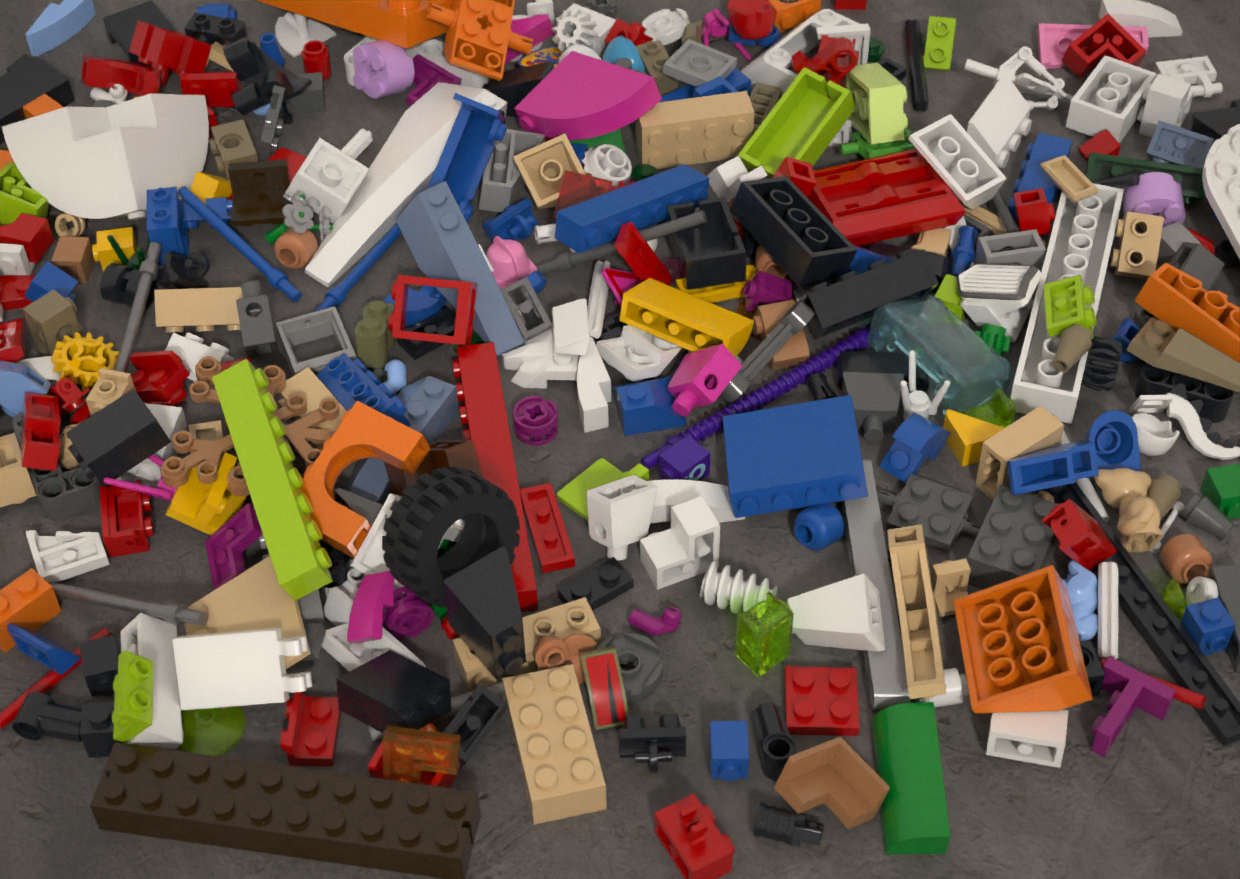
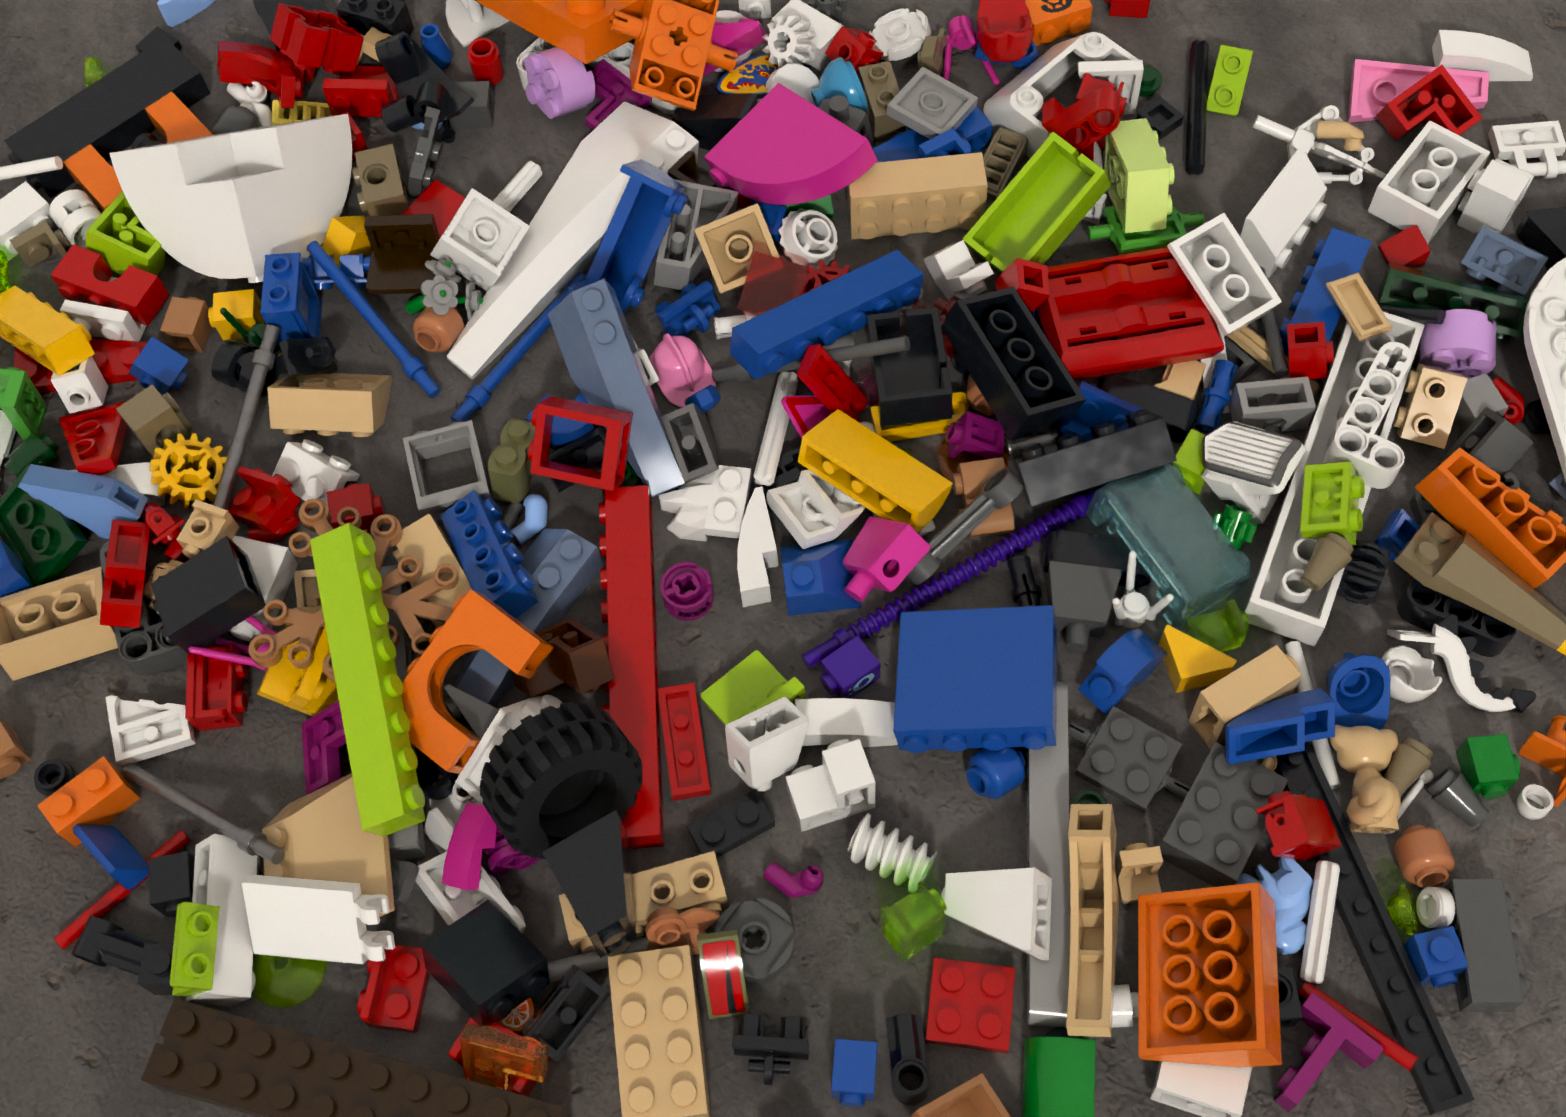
camera: 10 degrees right, 15 degrees up
(61, 227) = (182, 282): tan bush -> none
(258, 331) = (376, 452): dark grey torso -> none
(571, 328) = (737, 476): white slope -> none
(643, 171) = (852, 250): dark green plate -> none
(1038, 64) = (1341, 130): none -> tan arm
(1087, 245) = (1371, 407): none -> white beam

